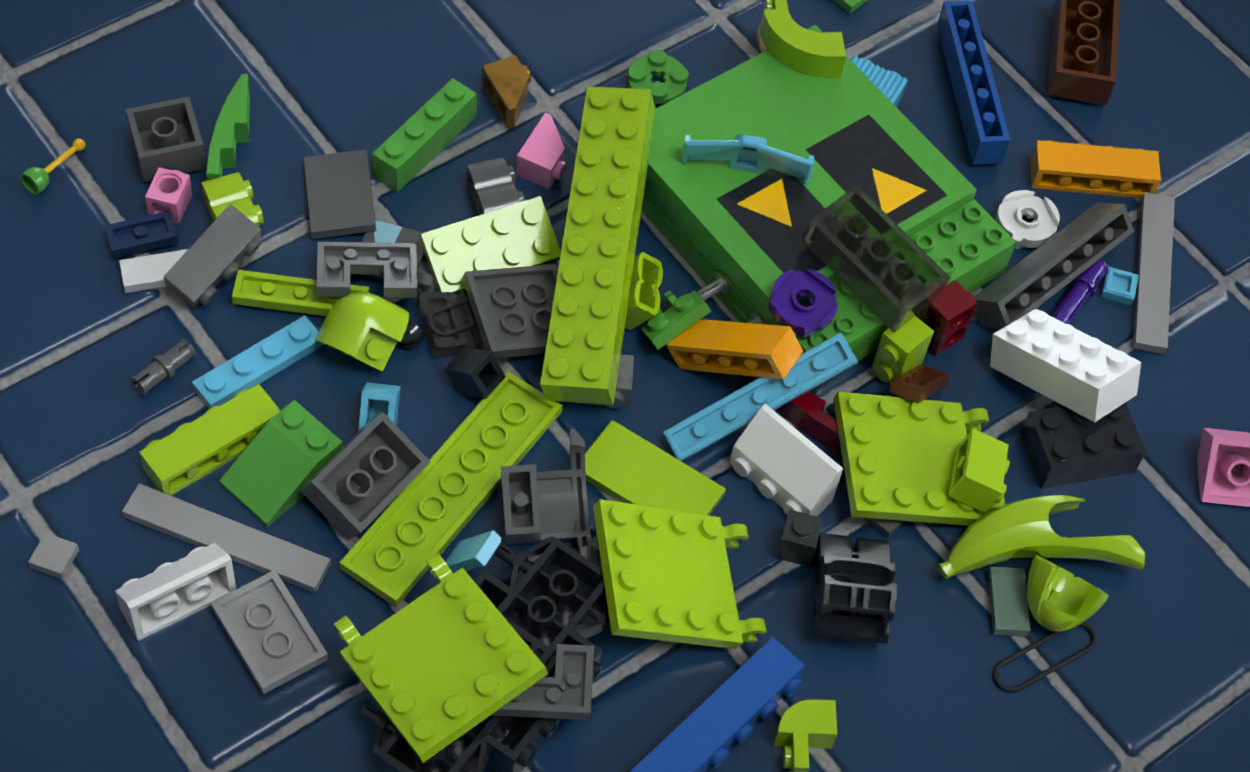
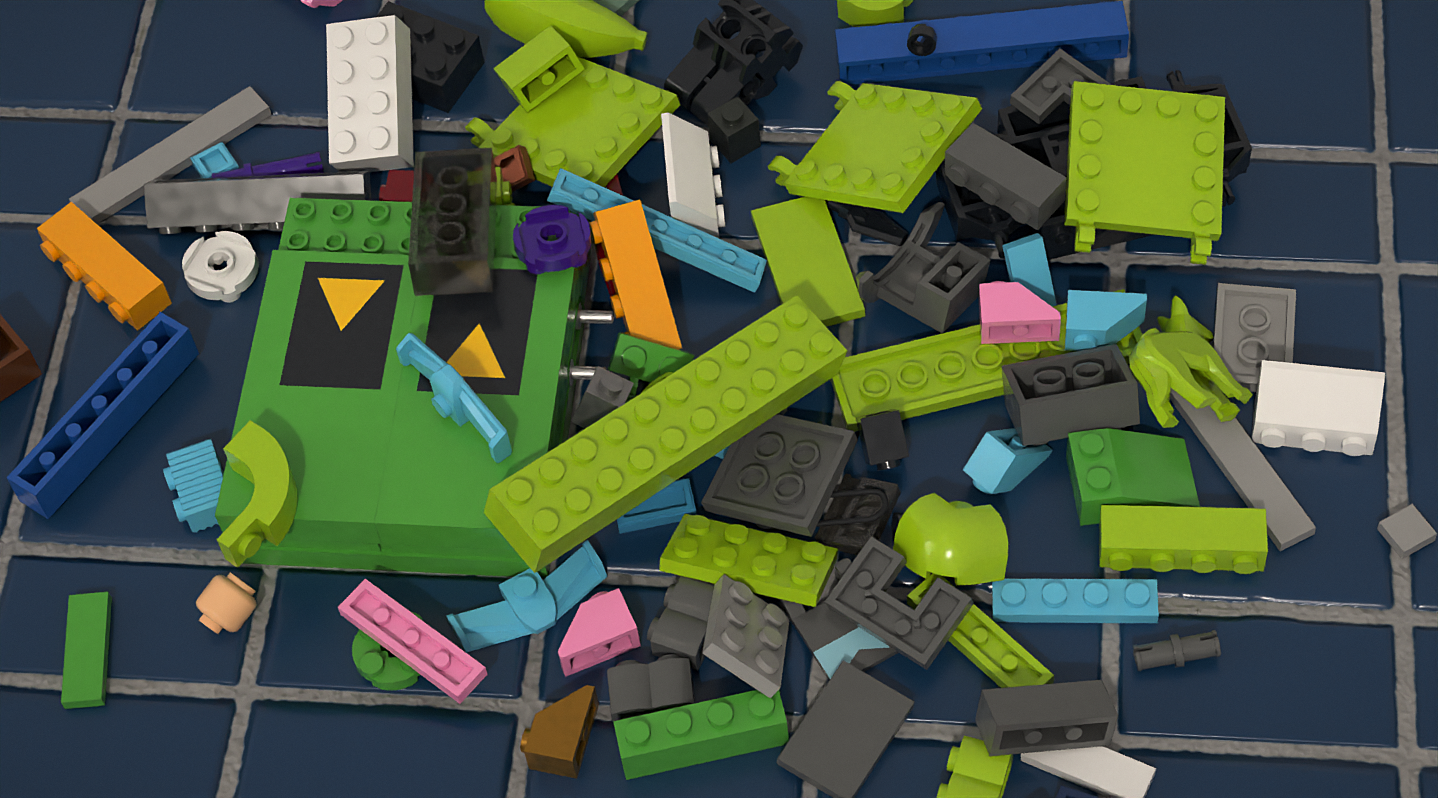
camera: 125 degrees left, 0 degrees up
(303, 543) = (1187, 364): none -> lime animal
(389, 545) = (1101, 317): none -> medium azure slope
(440, 177) = (746, 635): none -> light grey plate
(454, 508) = (1015, 315): none -> bright pink slope
(478, 139) = (649, 687): none -> dark grey brick
(540, 574) = (1005, 176): none -> dark grey brick
(642, 70) = (412, 641): none -> bright pink plate
(670, 253) = (602, 396): none -> flat silver slope
(725, 688) = (928, 42): none -> black hinge

